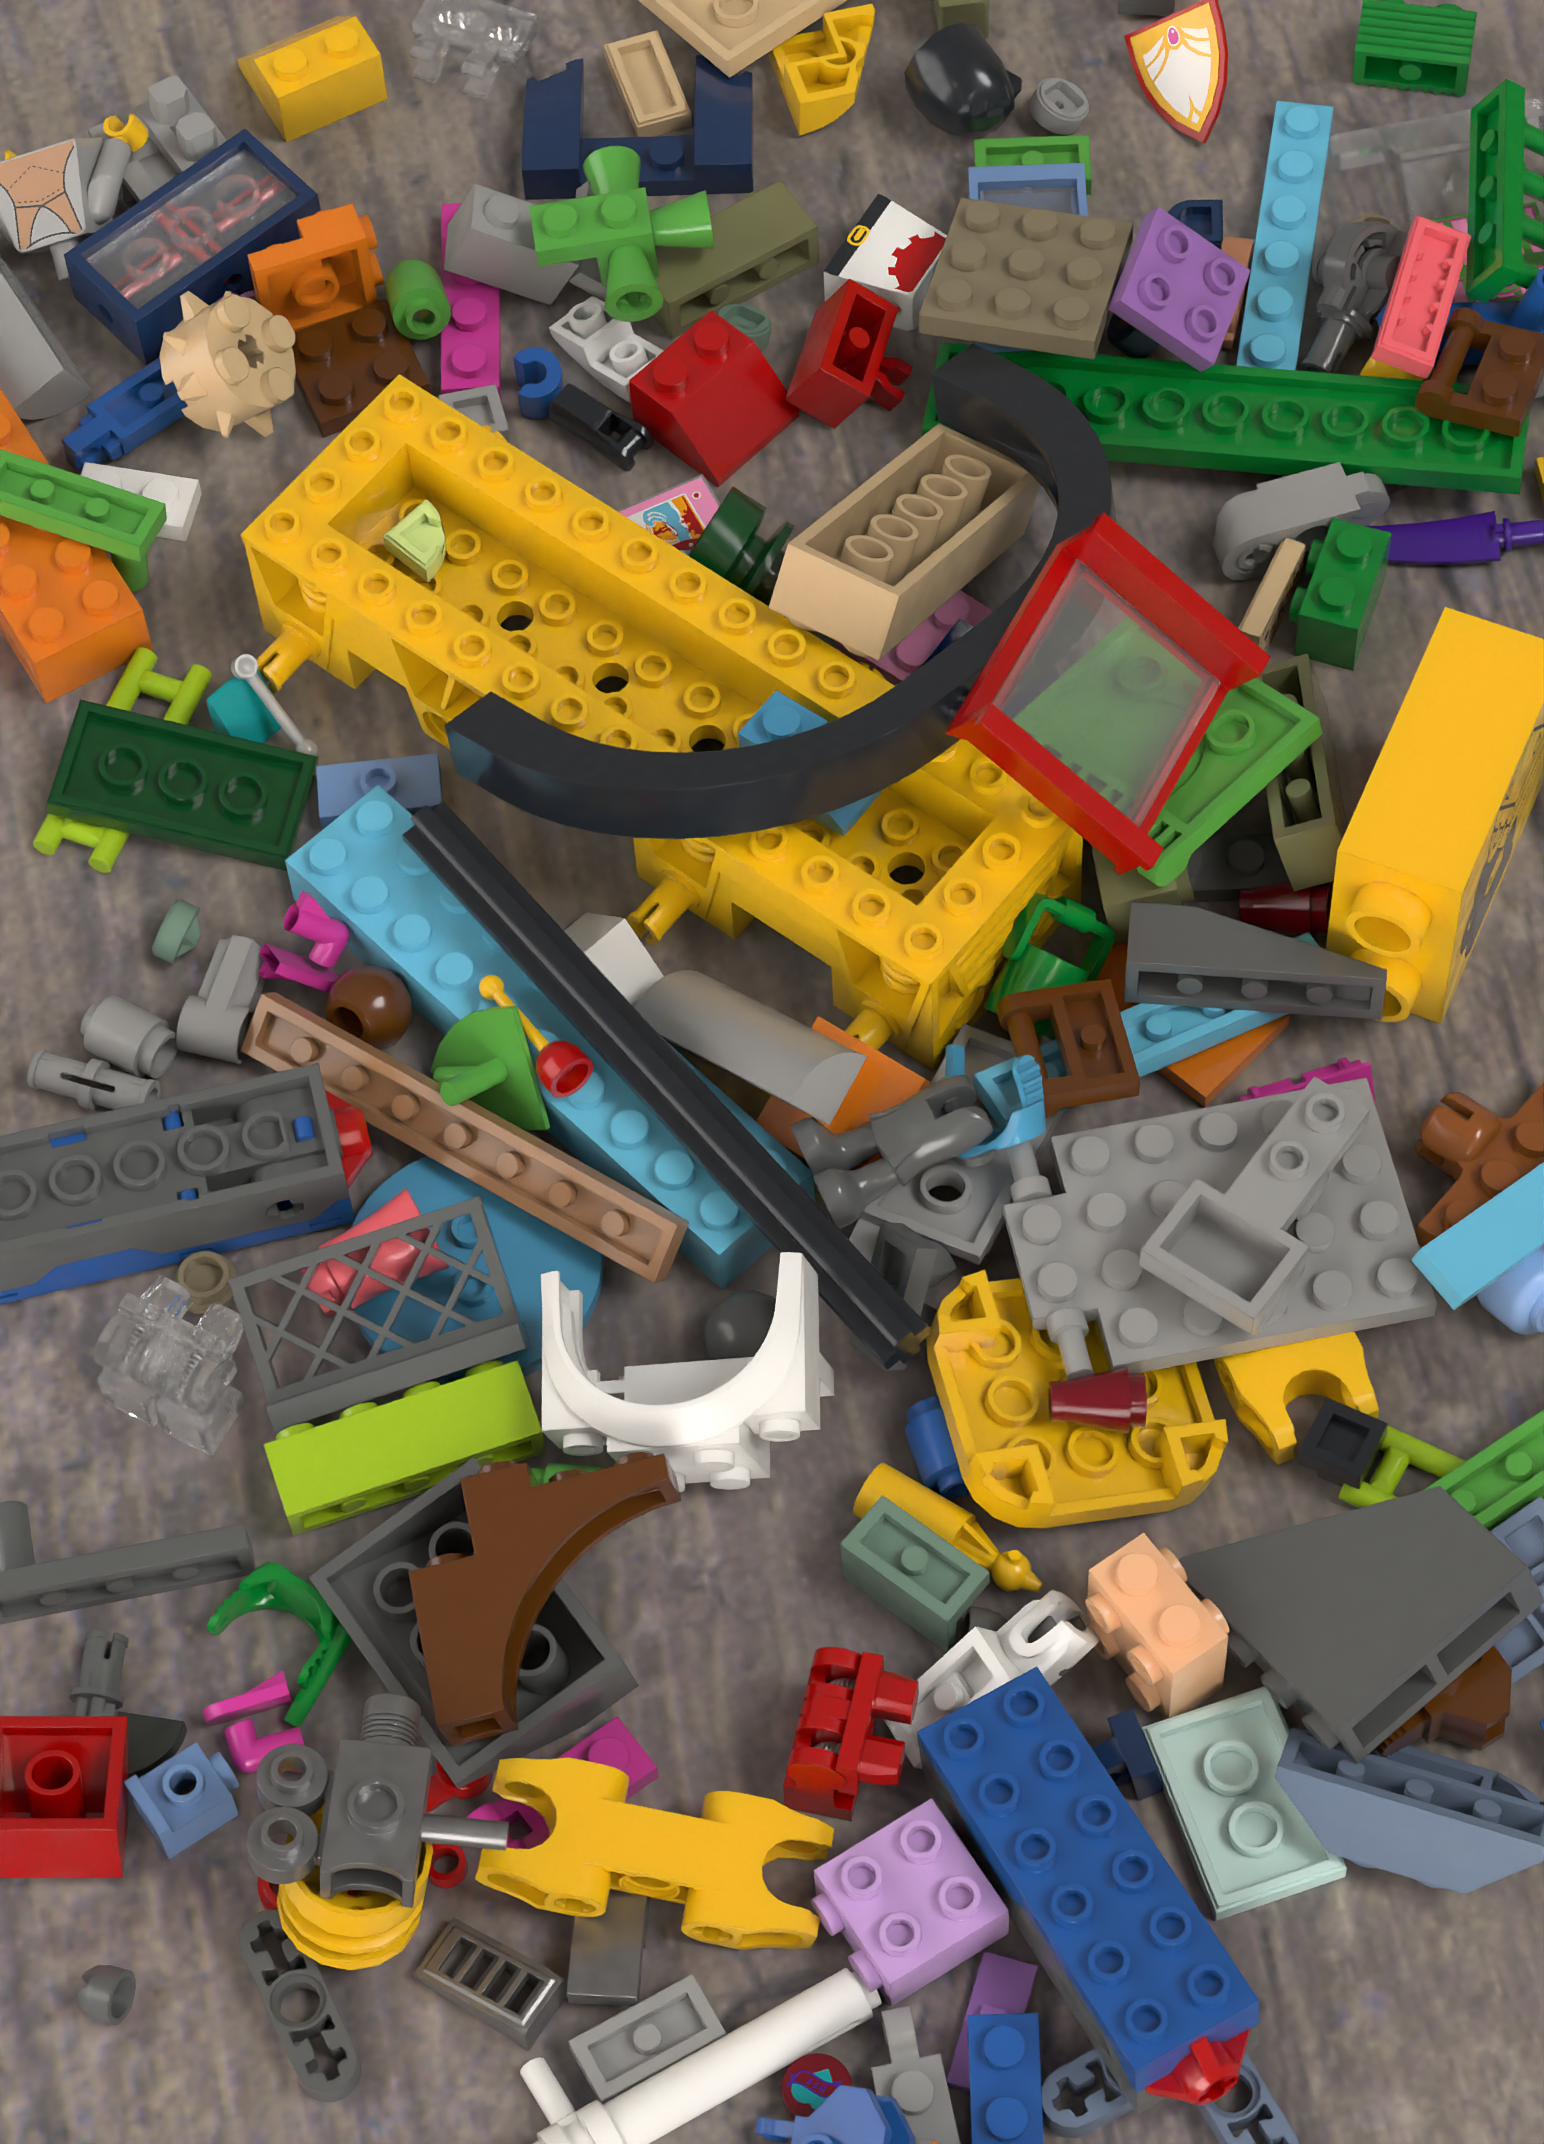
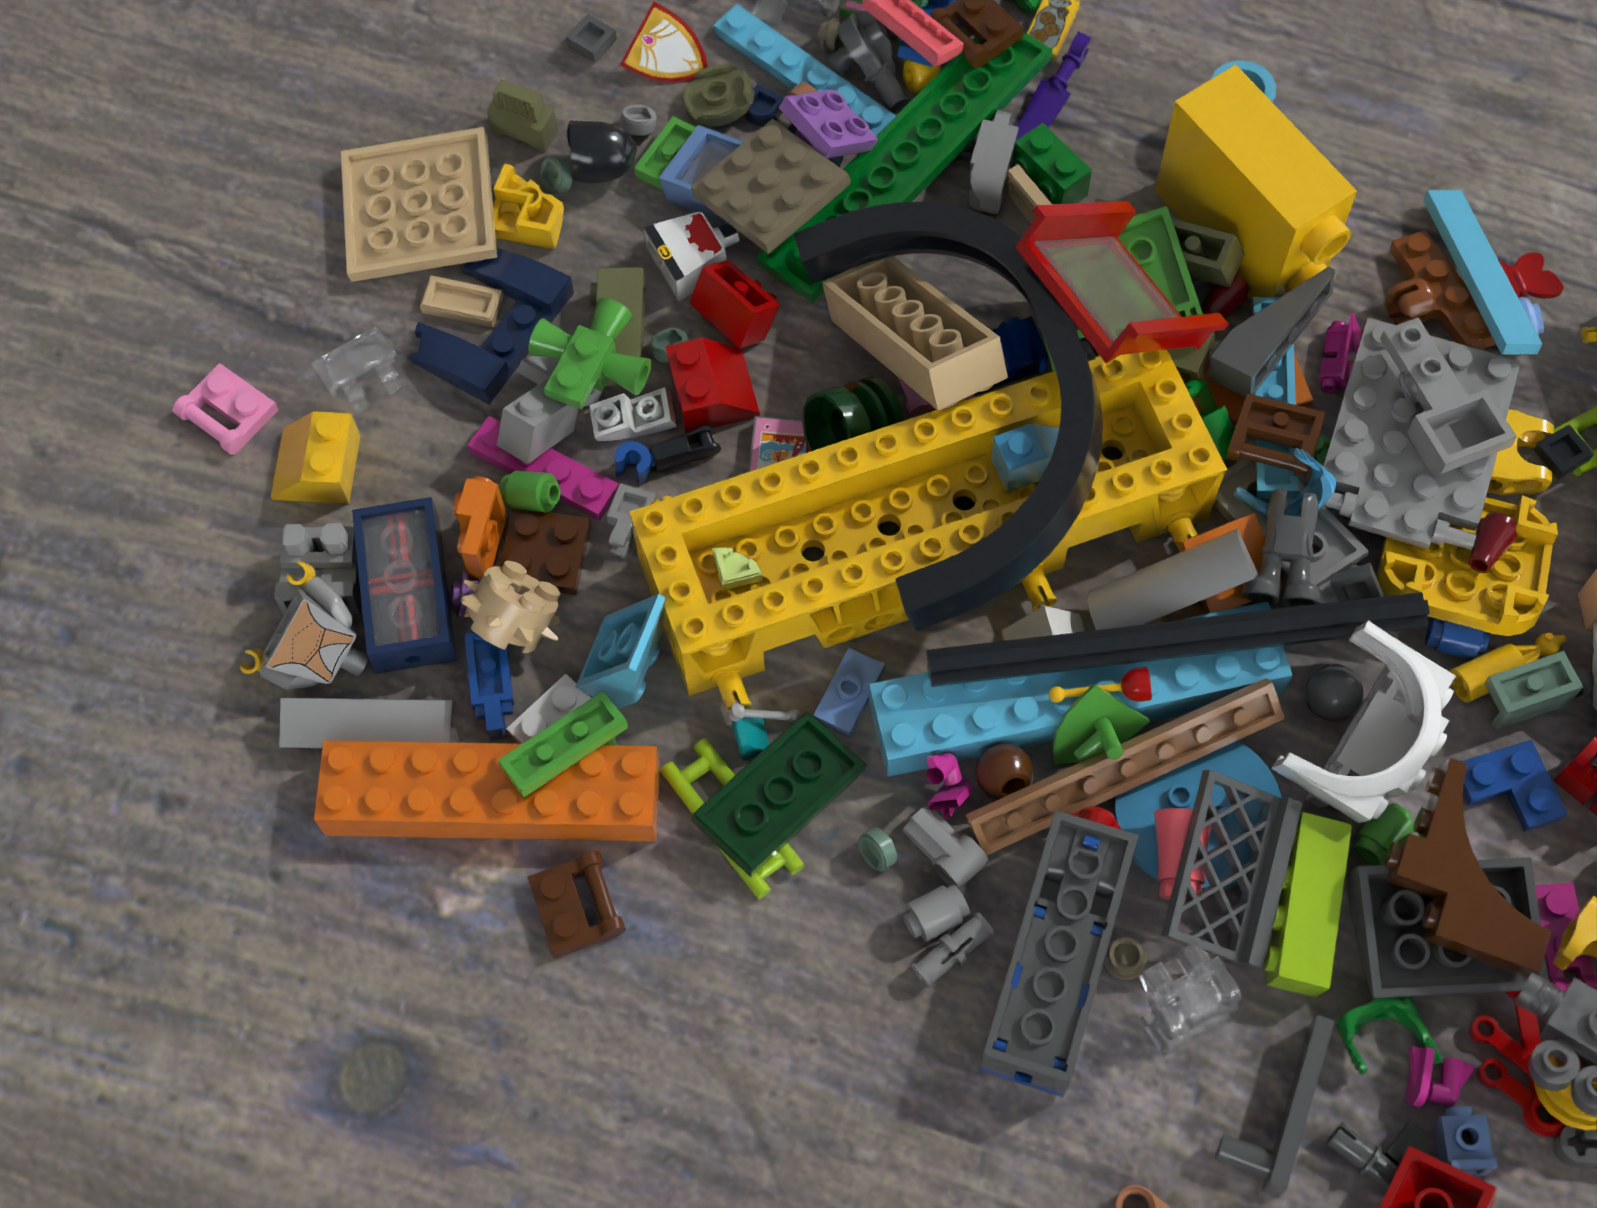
camera: 60 degrees left, 5 degrees up
(224, 505) = (624, 652): none -> medium azure slope
(781, 1626) = (1522, 777): none -> blue plate
(892, 76) = (556, 174): none -> sand green tile
(1167, 168) = (718, 95): none -> olive tile

